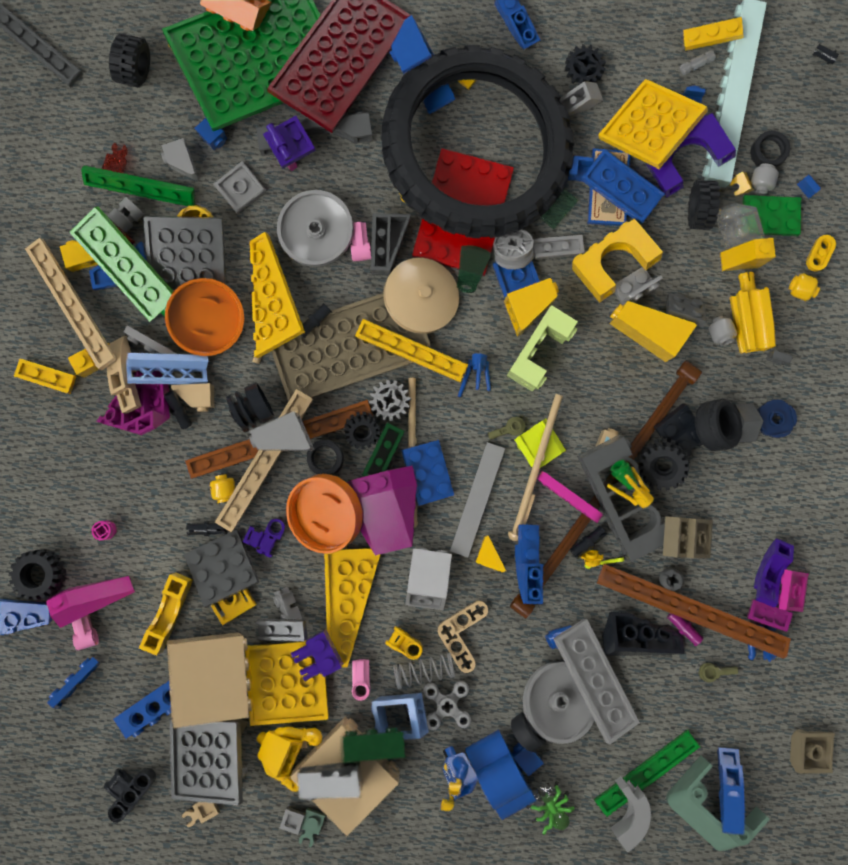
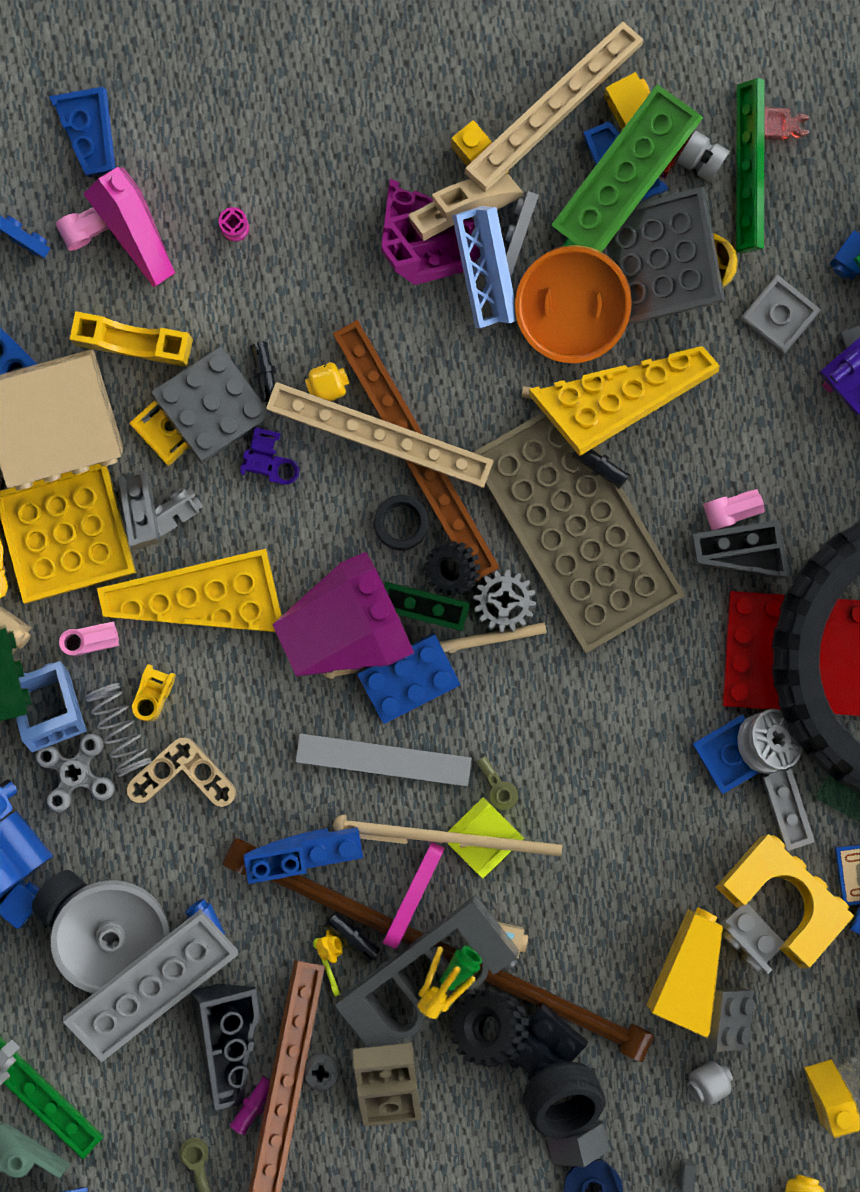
camera: 80 degrees right, 0 degrees up
(22, 574) = (149, 121): black tyre -> none
(45, 376) = (441, 91): yellow plate -> none
(177, 409) = (429, 293): black pin -> none
(179, 158) = (805, 216): light grey slope -> none
(196, 395) = (455, 316): tan slope -> none
(250, 407) = (454, 399): black wheel -> none
(282, 435) = (421, 454): light grey slope -> none
(315, 228) = (740, 439): light grey dish -> none
(324, 513) = (319, 537): orange piece -> none
(325, 655) = (118, 578): dark purple brick -> none
(411, 350) = (585, 618): yellow tile -> none
(421, 295) = (671, 617): tan dish -> none
(428, 579) = (253, 709): light grey slope -> none
(471, 267) = (731, 684): clear green piece -> none
(479, 363) = (587, 722): blue plant -> none
(488, 556) = (303, 792): yellow slope -> none
(529, 303) = (691, 782): yellow slope -> none
(557, 326) = (665, 828): yellowish green plate -> none
(752, 316) = (741, 1124): yellow piece -> none

